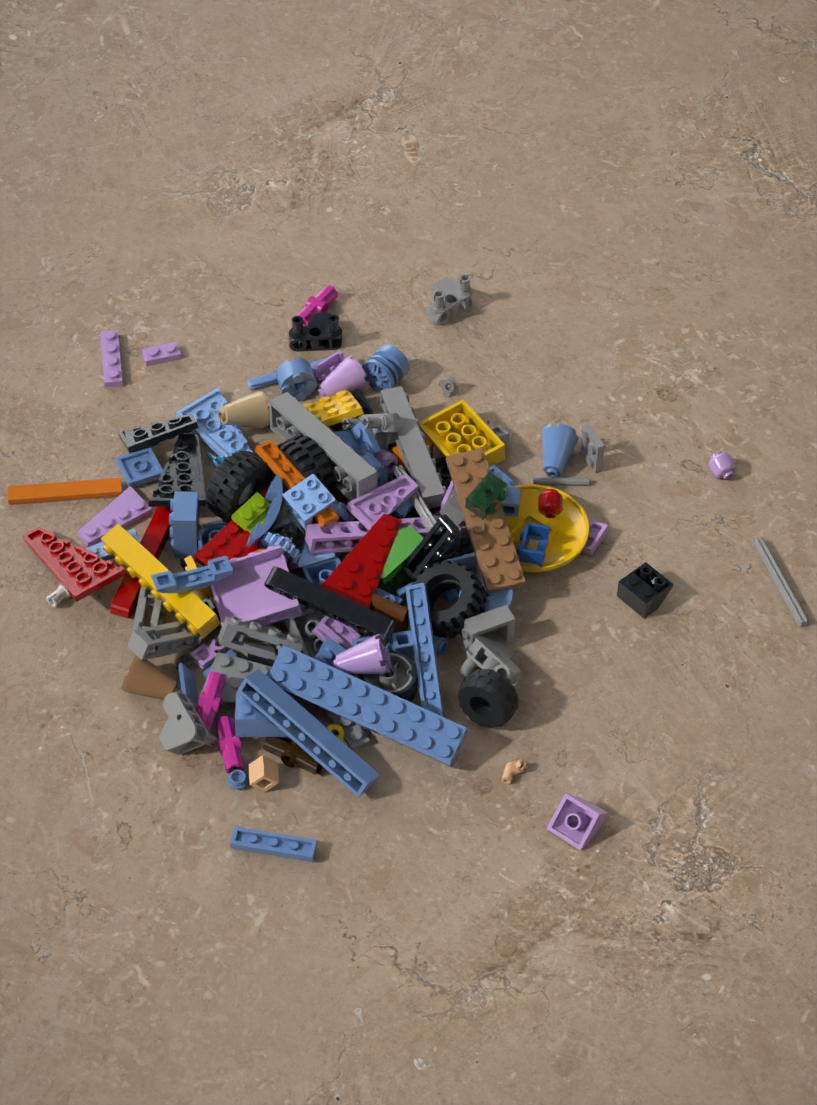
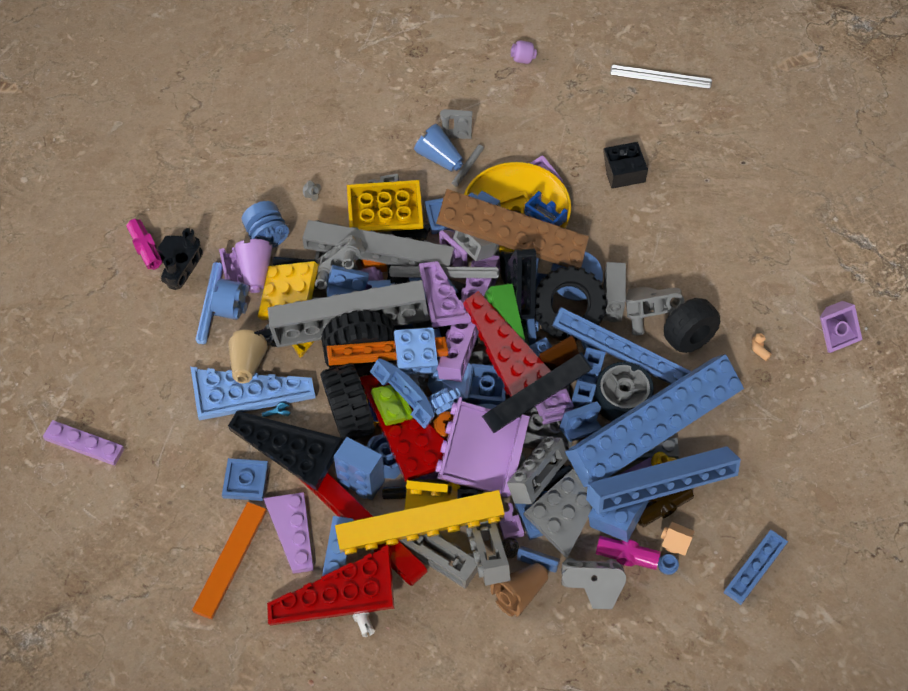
camera: 60 degrees left, 10 degrees up
(157, 432) = (214, 450): black wing -> none
(161, 354) = (108, 397): lavender plate -> none
(193, 579) = (449, 487): medium blue slope -> none
(211, 698) = (579, 543): dark pink piece -> none
(365, 658) = (612, 394): lavender cone -> none
(449, 299) = (209, 141): light grey piece -> none
(486, 496) = (503, 212): clear green brick -> none
(550, 503) = (506, 179): red head -> none

